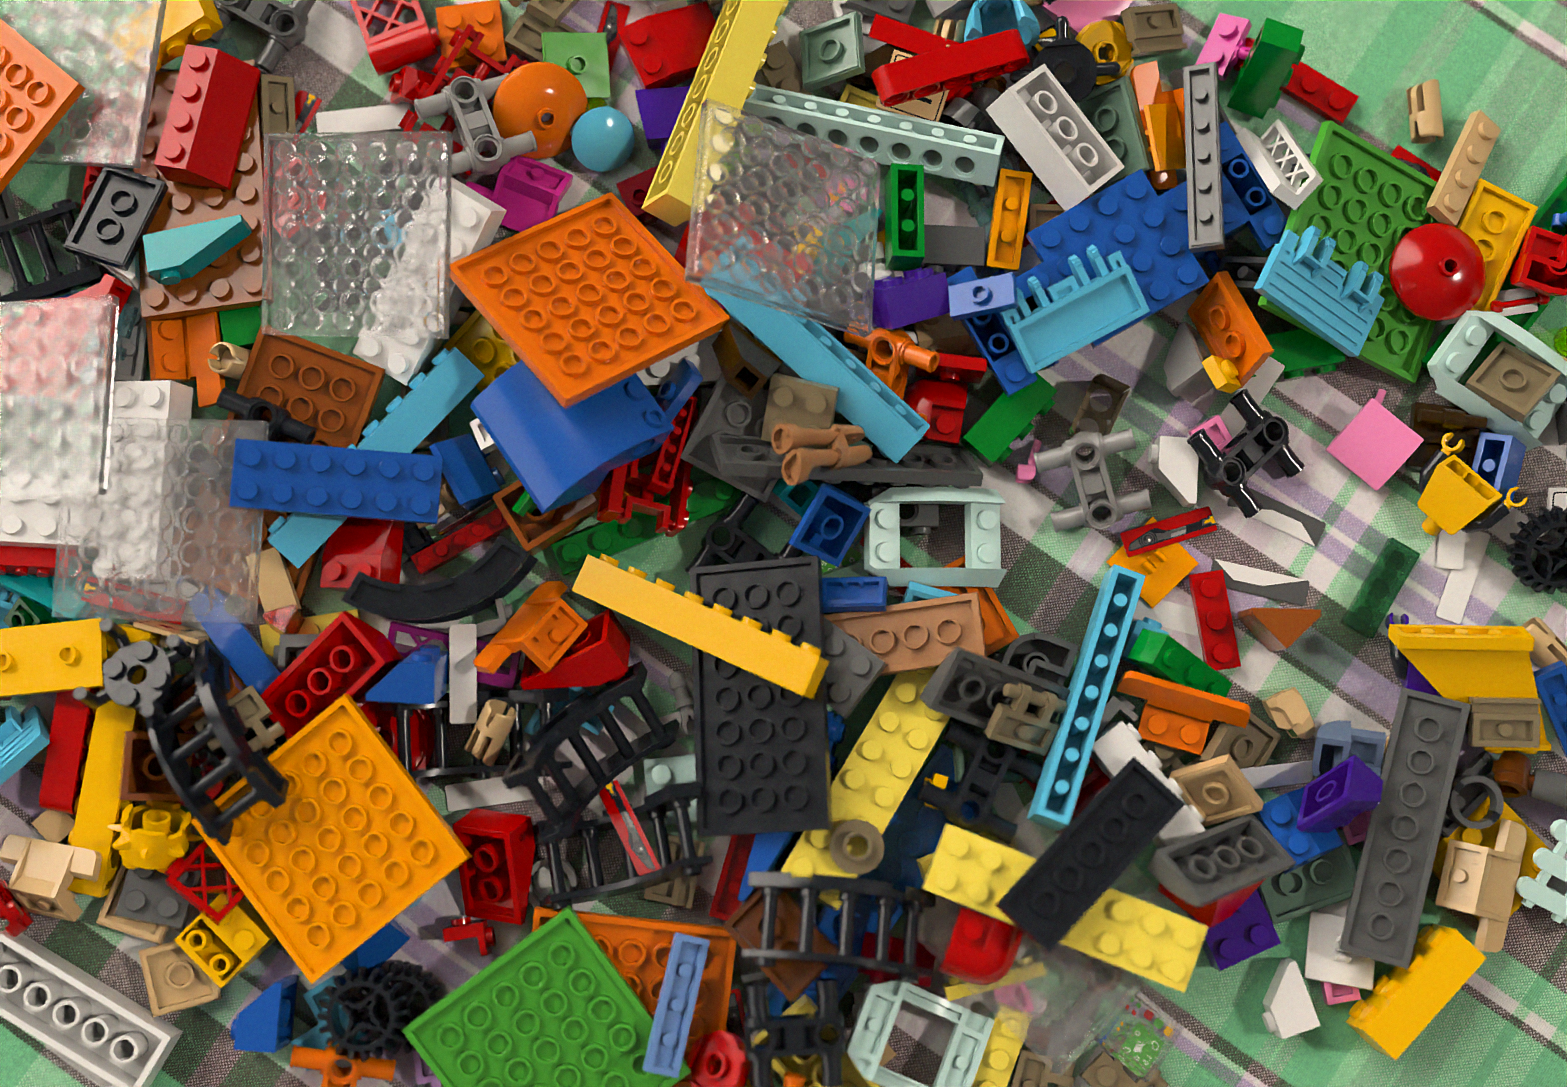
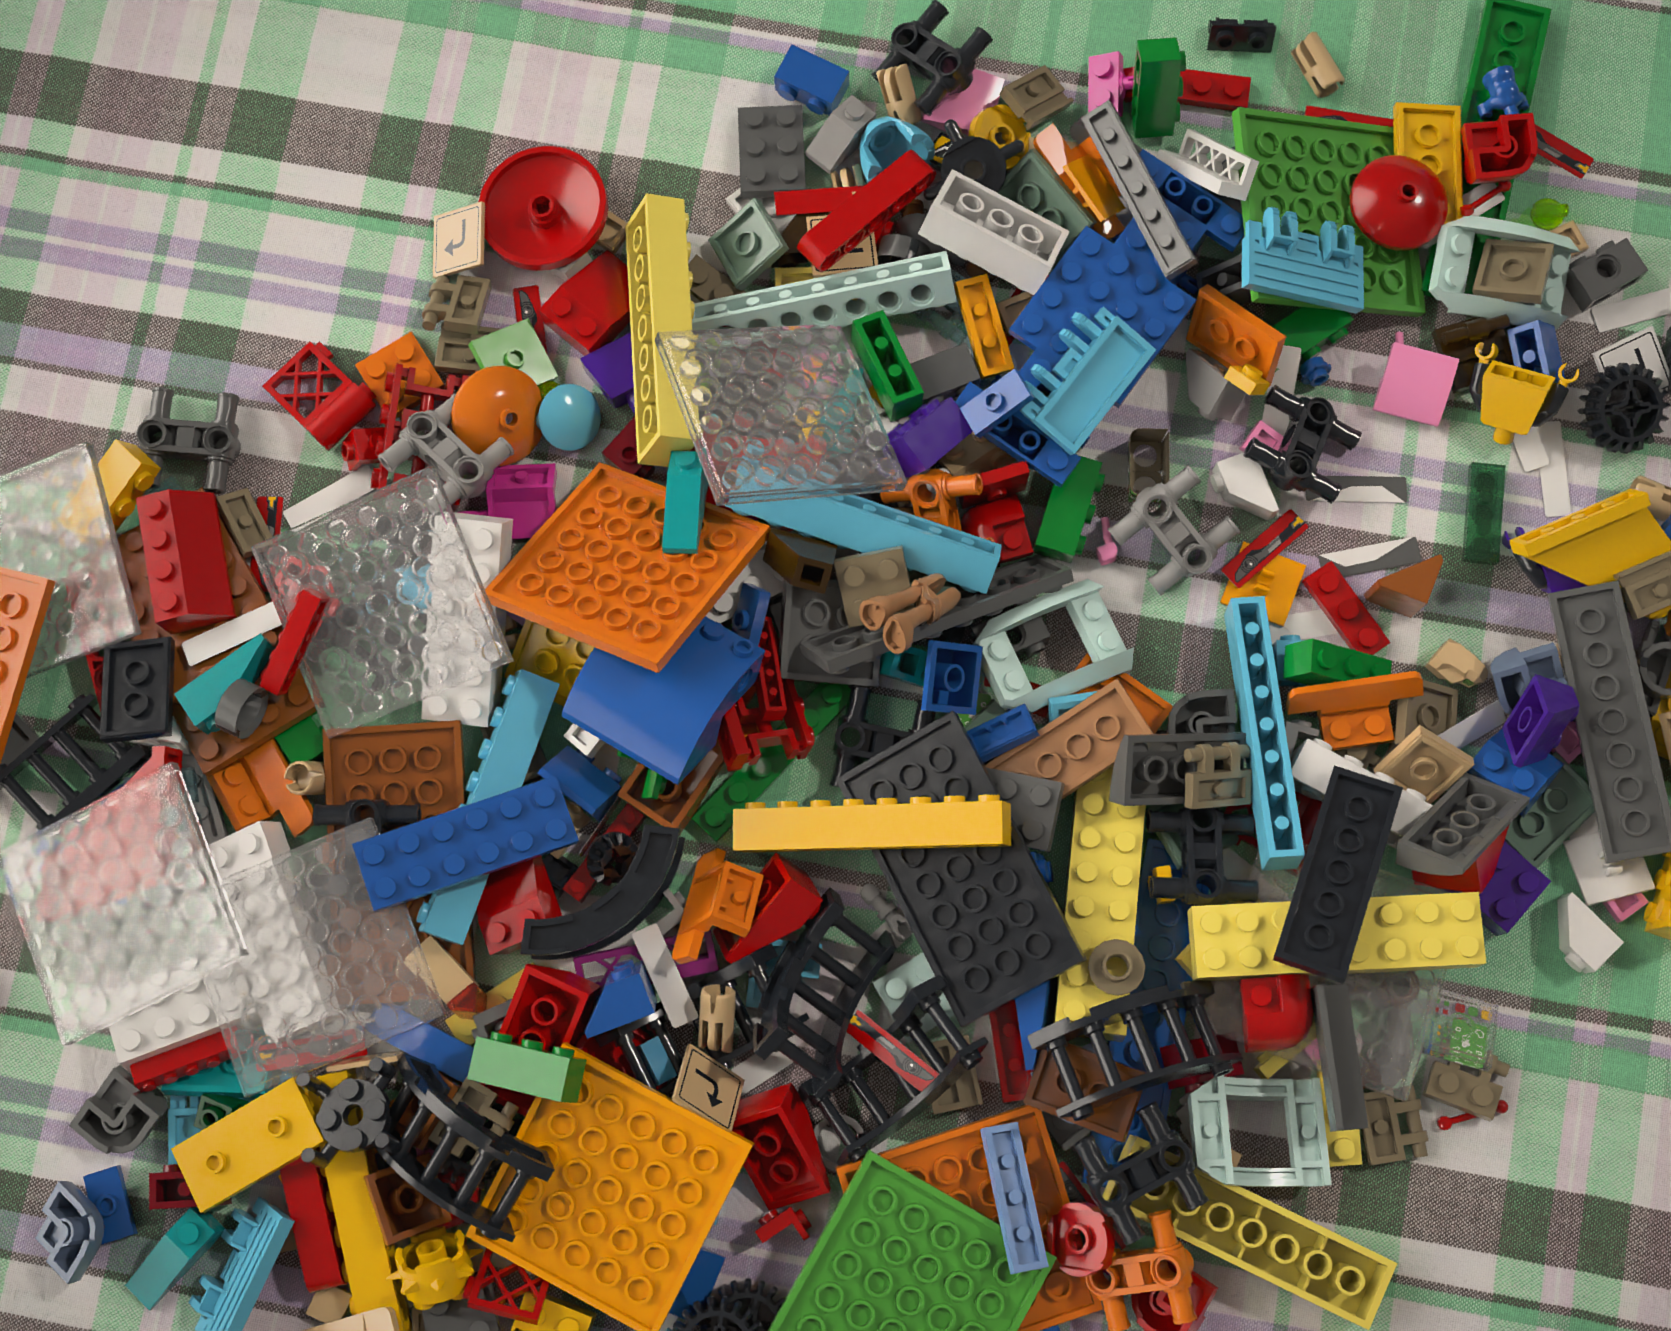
camera: 20 degrees left, 5 degrees down
(202, 282) = (241, 708): none -> dark grey piece
(217, 203) = (231, 633): none -> white sticker
(266, 235) = (293, 641): none -> red piece
(303, 702) = (527, 1067): none -> brick
(423, 743) = (656, 1061): none -> dark azure piece
(454, 543) = (601, 854): none -> black gear
(454, 789) = (708, 1088): none -> tan piece
(661, 266) = (684, 503): none -> teal slope
(1016, 1014) = (1339, 1057): none -> dark grey panel
(1289, 392) = (1315, 371): none -> blue plate
(1376, 58) = (1245, 37): none -> black hinge
(1463, 168) = (1376, 100): tan plate -> none

